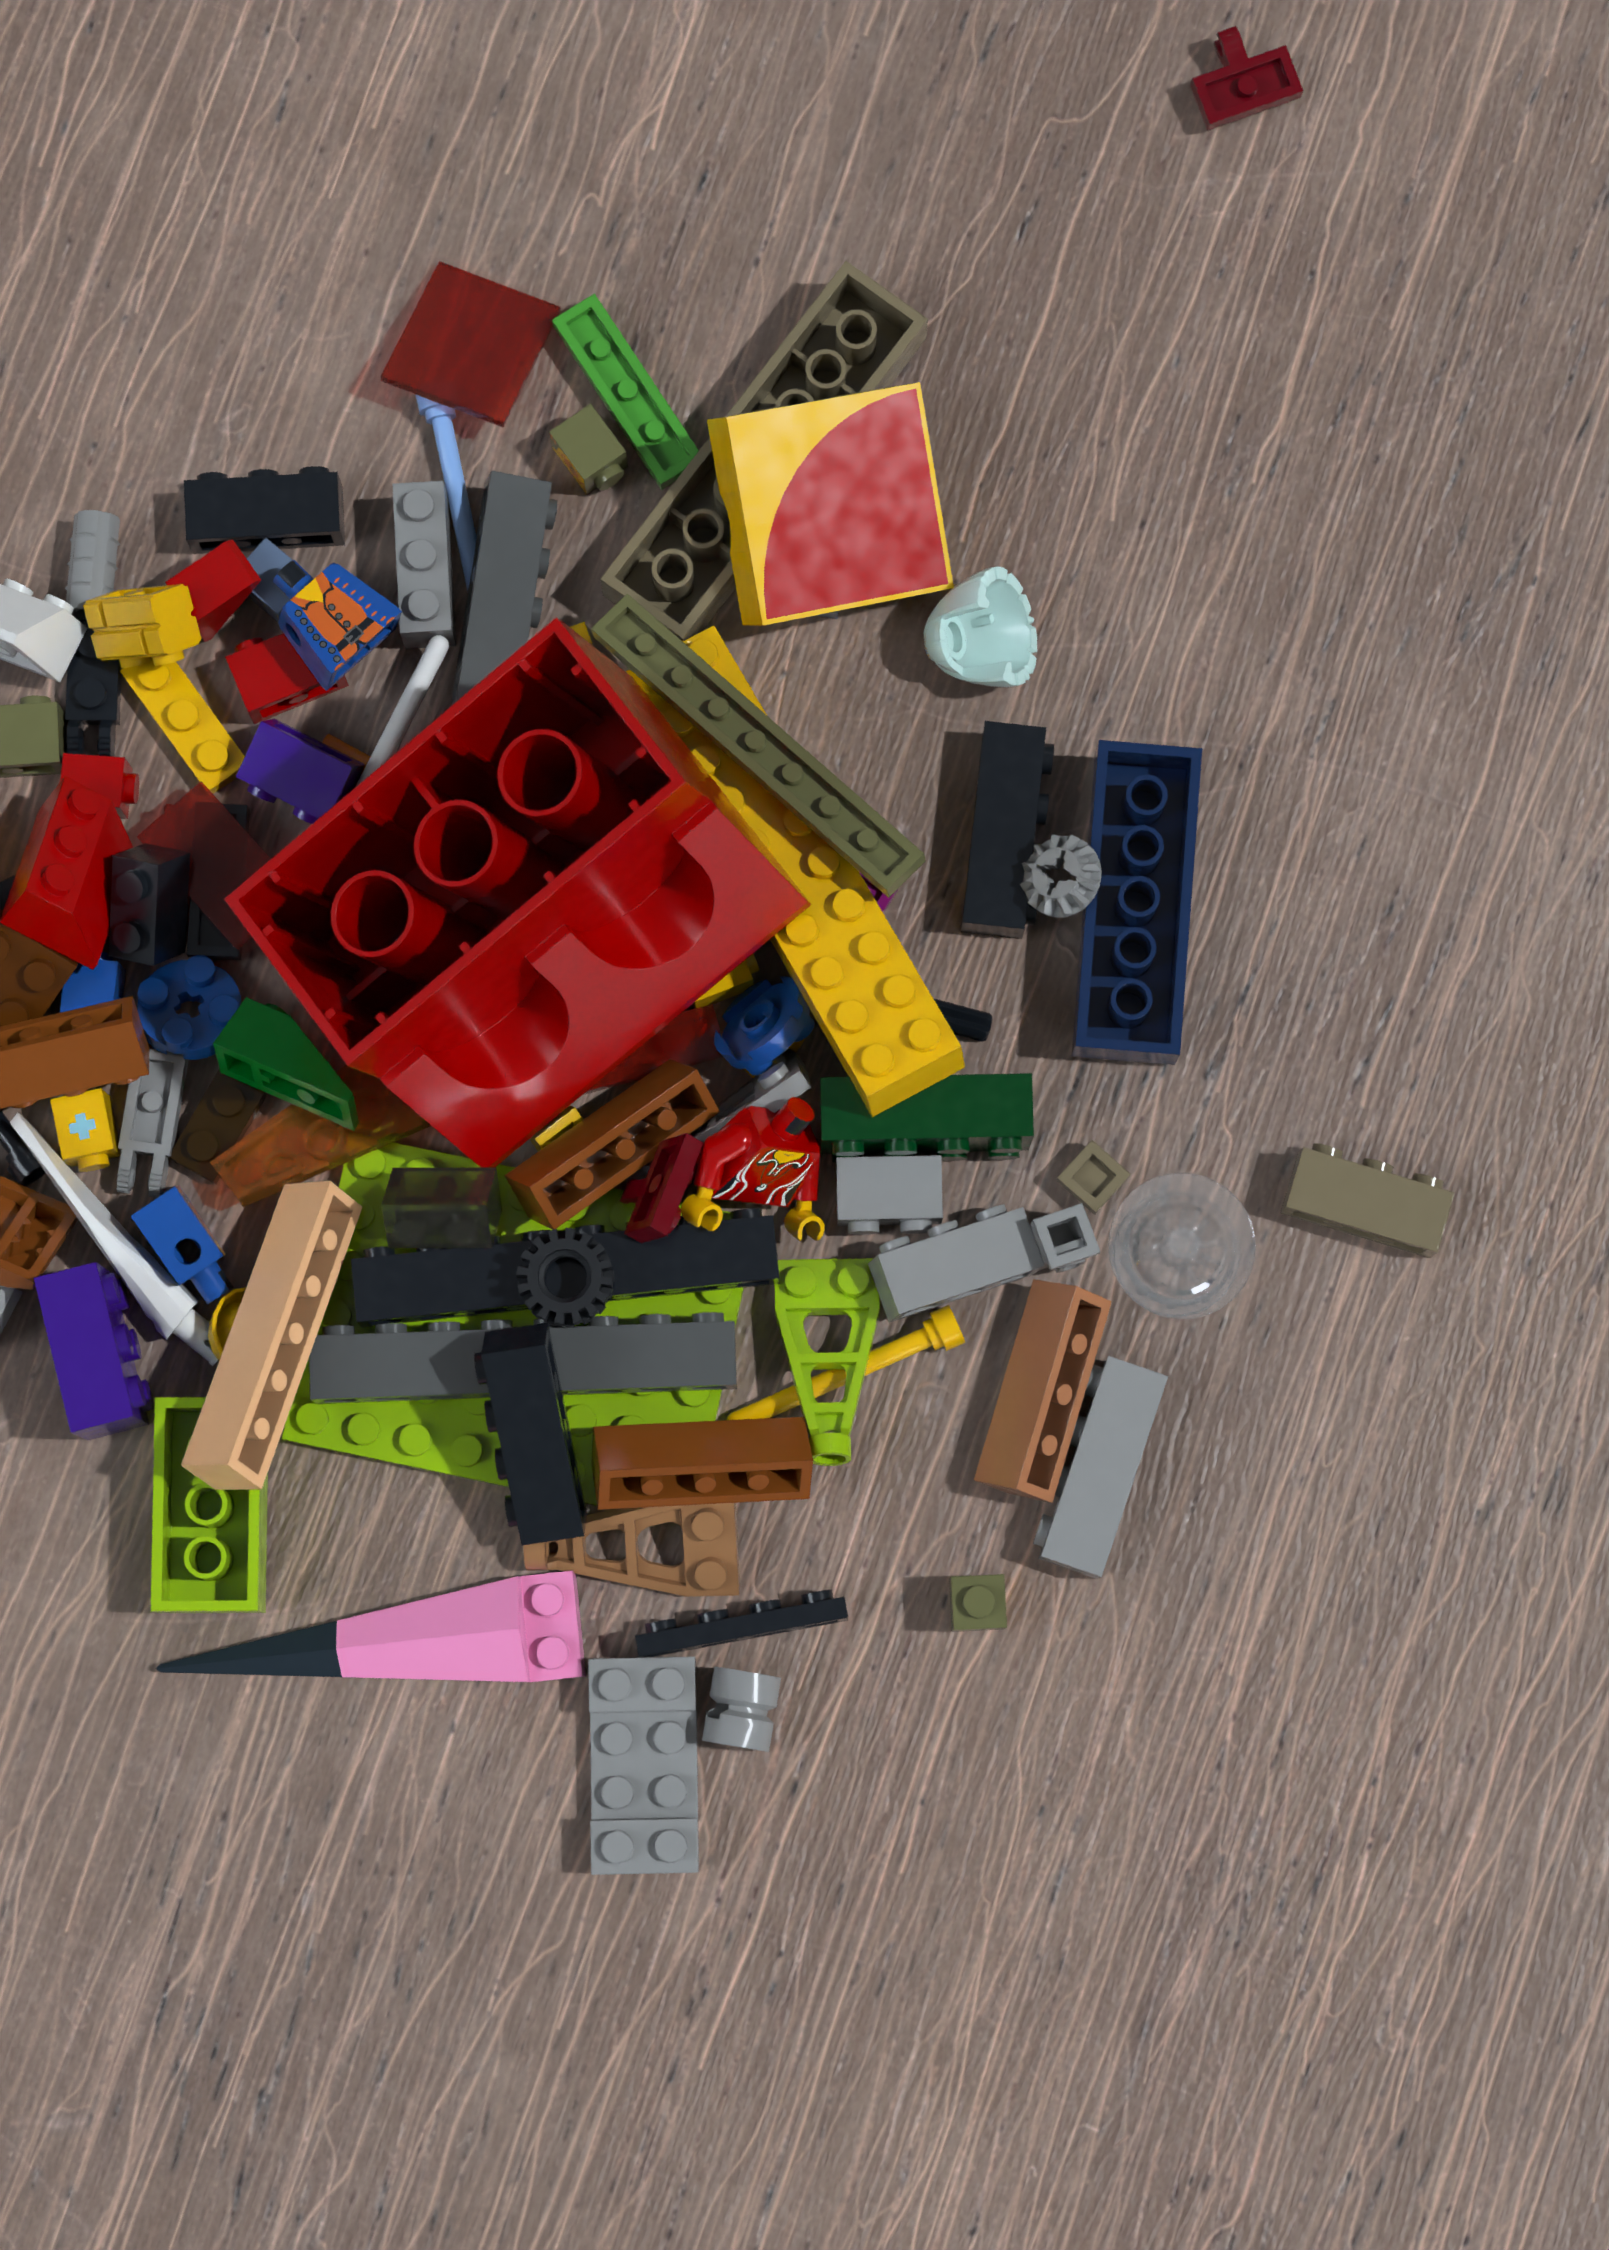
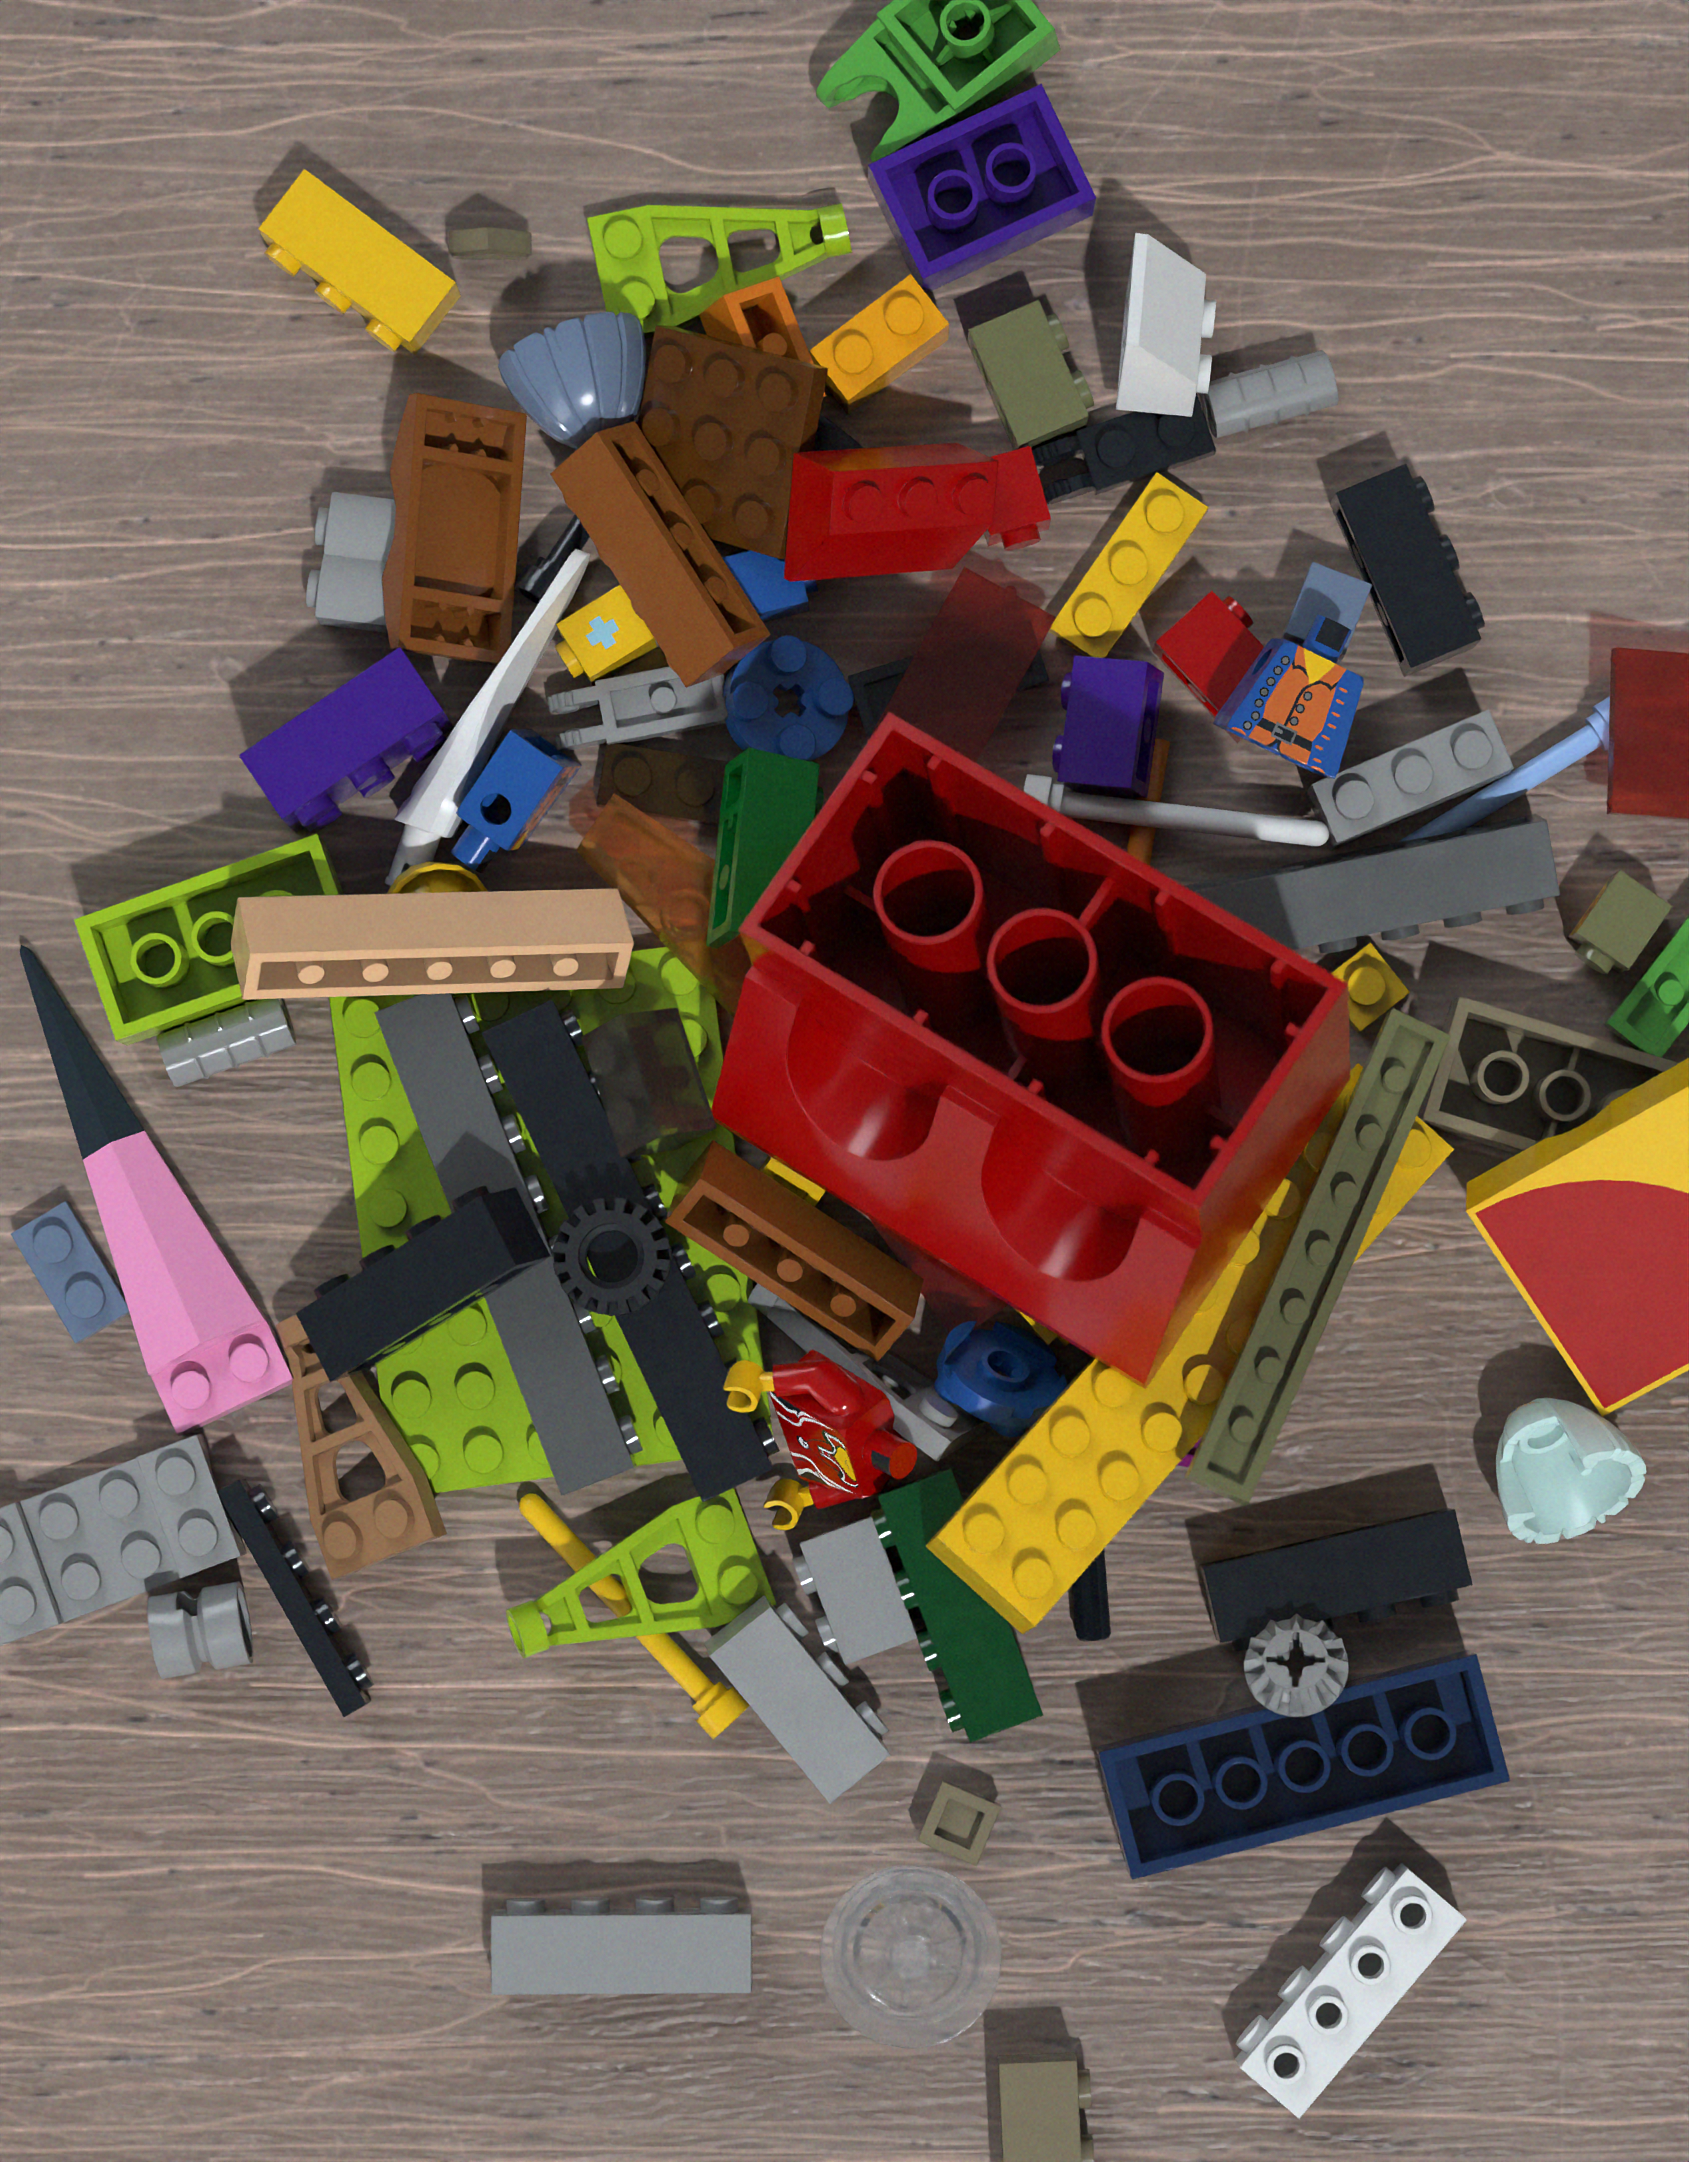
camera: 75 degrees right, 5 degrees up
(143, 624) = (1213, 481): yellow brick -> none
(149, 904) = (887, 612): black brick -> none
(217, 586) = (1289, 547): red slope -> none
(289, 1531) = (226, 1040): none -> light grey axle
(426, 1717) = (71, 1272): none -> sand blue plate
(661, 1191) = (755, 1330): dark red plate -> none
(701, 1462) = (459, 1487): dark orange brick -> none
(977, 1603) = (415, 1859): olive brick -> none
(1043, 1390) = (684, 1851): nougat brick -> none
(1065, 1238) = (869, 1817): light grey brick -> none
(1318, 928) = (1348, 1989): none -> white brick

